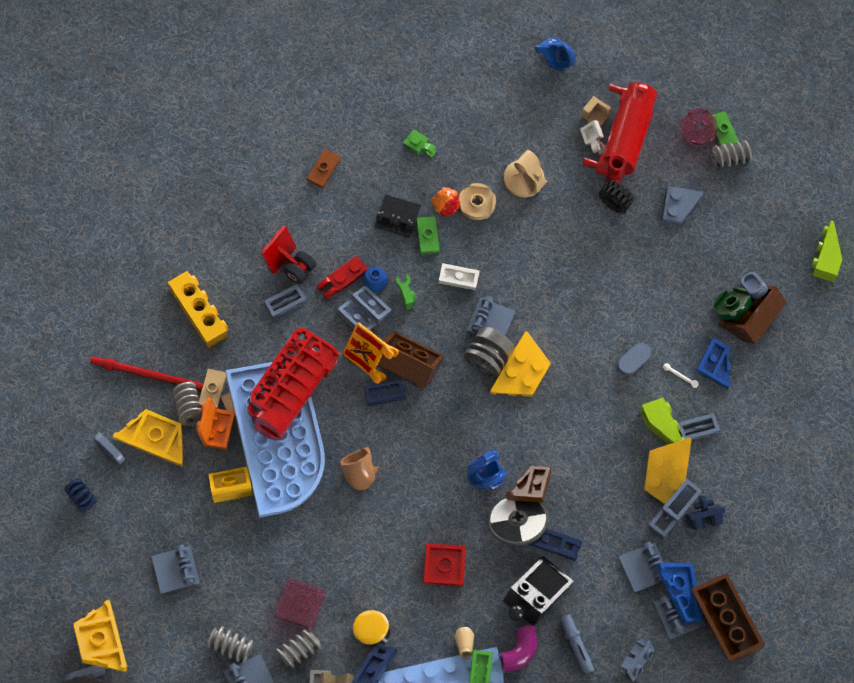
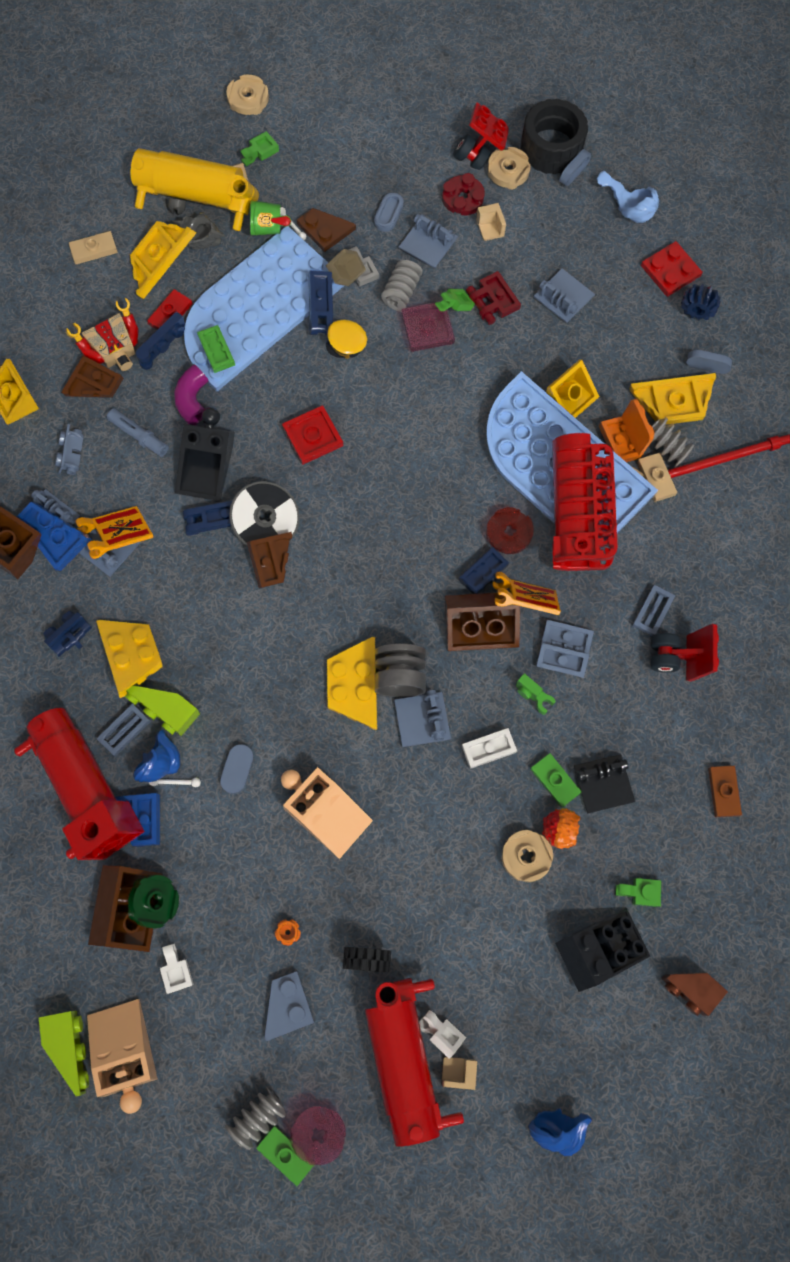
camera: 150 degrees right, 5 degrees up
(62, 610) = (636, 205): none -> light blue hair
(75, 543) = (671, 268): none -> red plate
(99, 639) = (585, 196): yellow wing -> none
(189, 665) = (491, 221): none -> tan panel
(210, 334) = (725, 533): yellow brick -> none
(227, 598) = (499, 294): none -> dark red plate
(229, 644) = (467, 255): light grey piece -> none
(263, 609) = (456, 299): none -> bright green plate
(343, 277) = (612, 675): red hinge -> none
(350, 420) = (518, 521): none -> clear red plate
(359, 471) = (456, 471): medium nougat piece -> none
(375, 279) = (577, 692): blue cone -> none
(424, 75) = (697, 989): none -> copper slope
(464, 639) = (248, 371): tan cone -> none
(466, 125) = (602, 950): none -> black slope
(486, 471) = (324, 539): blue helmet -> none
(524, 176) = (491, 922): tan piece -> none
(592, 299) = (329, 814): none -> light nougat slope
(630, 568) = (115, 530): none -> light orange flag
(656, 239) = (294, 932): none -> orange plate
(674, 509) = (102, 613): sand blue slope -> none
(686, 390) = (160, 761): none -> blue hair
(739, 259) = (176, 973): none -> white plate
(744, 366) = (97, 819): none -> red piece
(754, 285) = (138, 942): sand blue tile -> none
(795, 232) = (120, 1046): none -> light nougat slope

